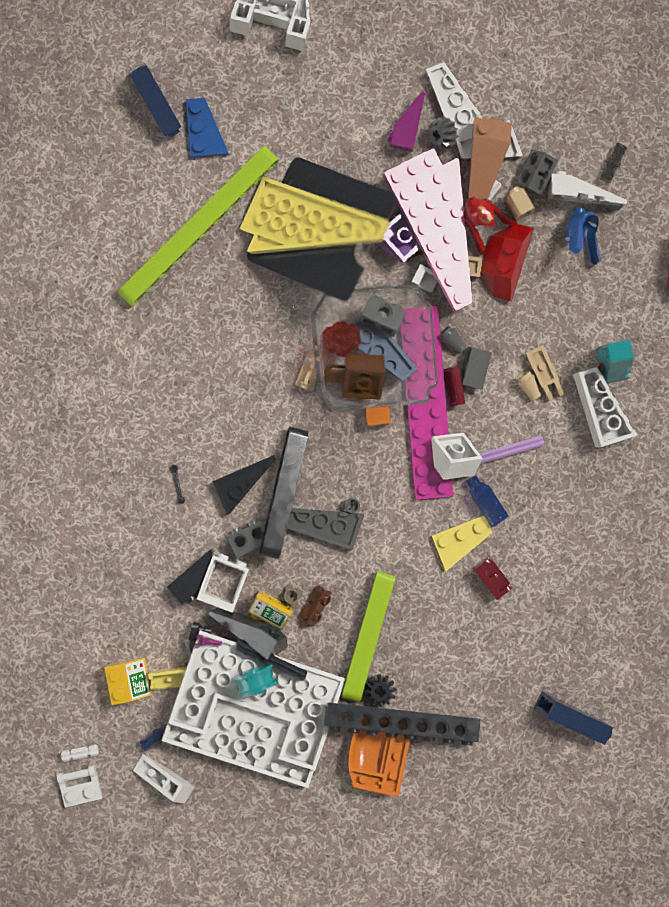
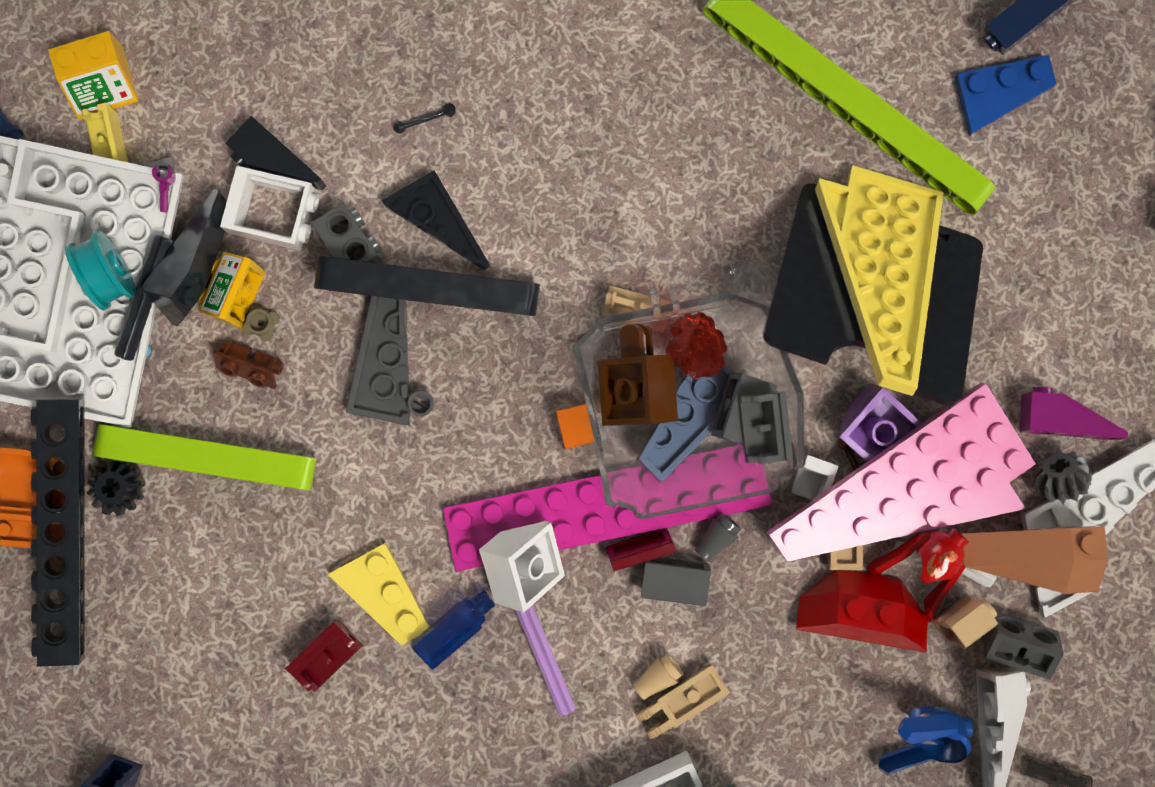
camera: 85 degrees right, 5 degrees down
(196, 627) = (192, 176): black wheel -> none
(394, 306) = (765, 427): none -> dark grey hinge

